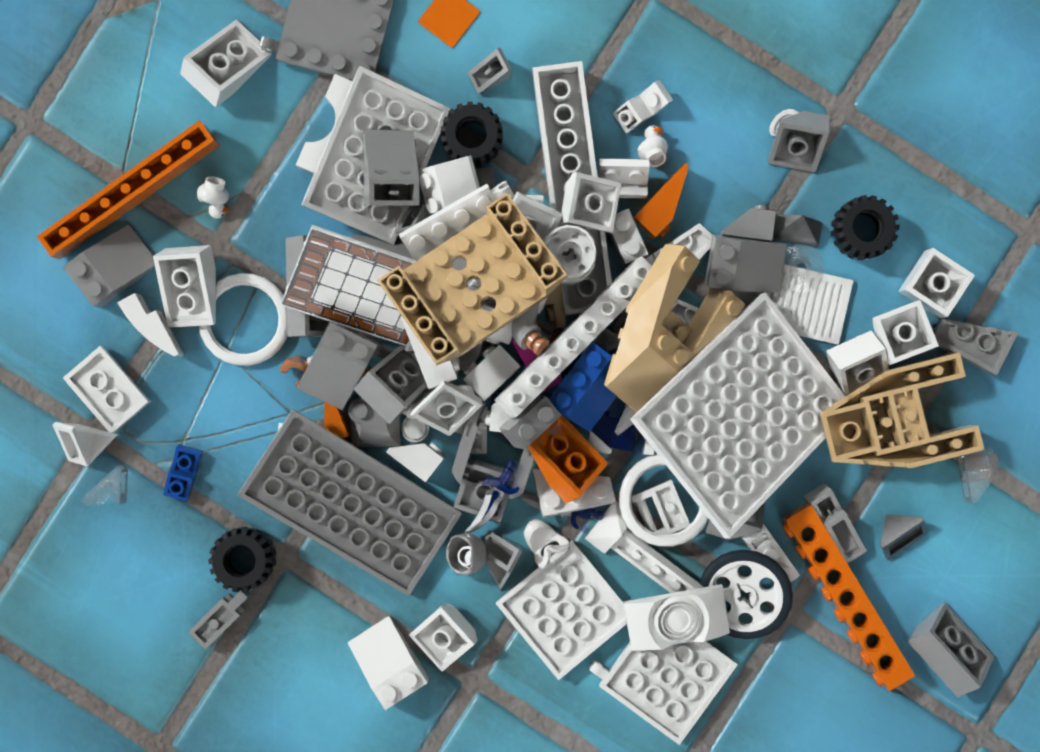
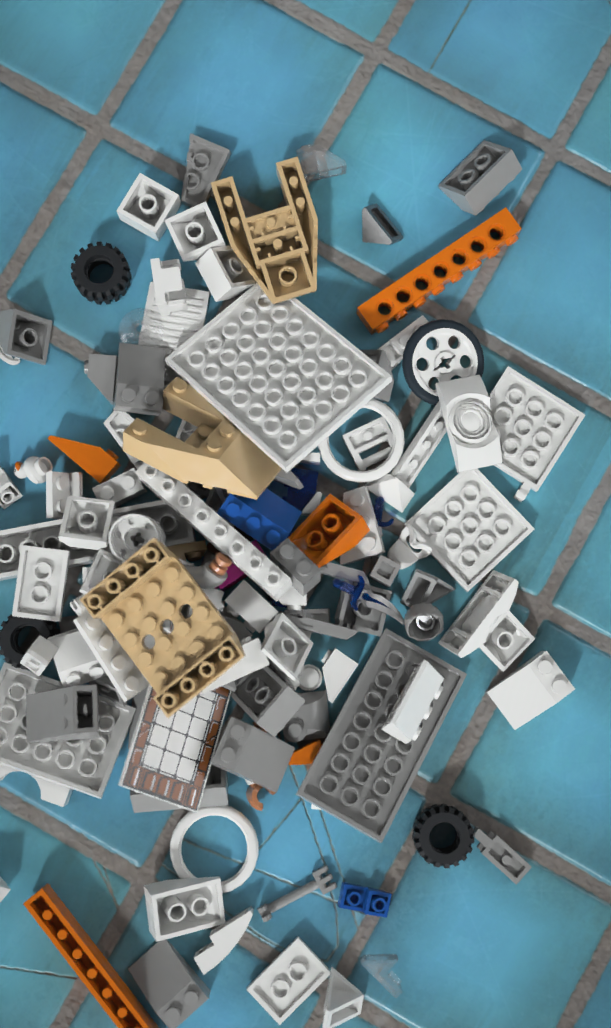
camera: 90 degrees left, 5 degrees down
(203, 426) = (319, 882): none -> light grey hinge
(216, 194) = (94, 884): white animal -> none
(380, 538) = (414, 703): none -> white slope
(452, 147) = (39, 655): none -> white slope
(469, 615) = (480, 614): none -> white slope
(522, 516) = (384, 571): none -> light grey panel
(529, 151) = (41, 583): none -> white plate
(797, 229) = (106, 334): flat silver slope -> none
(836, 522) = (371, 284): light grey slope -> none
(846, 301) = (168, 286): none -> white panel

